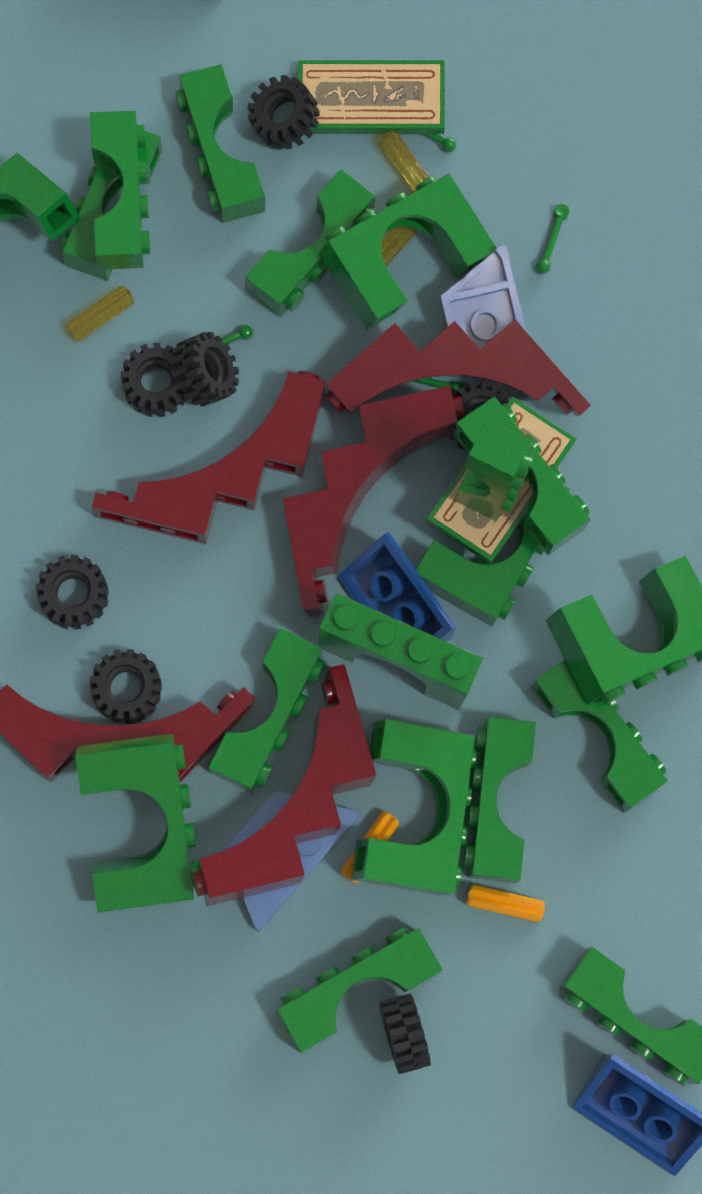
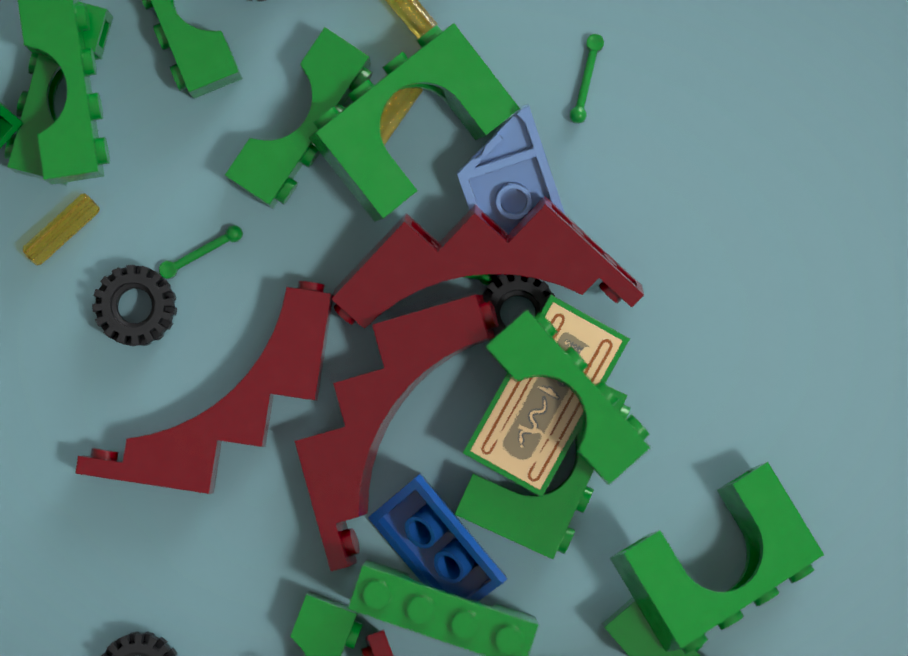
camera: 10 degrees right, 10 degrees up
(62, 571) = (39, 575): black tyre -> none
(204, 369) = (172, 299): black tyre -> none
(494, 471) = (532, 416): green arch -> none

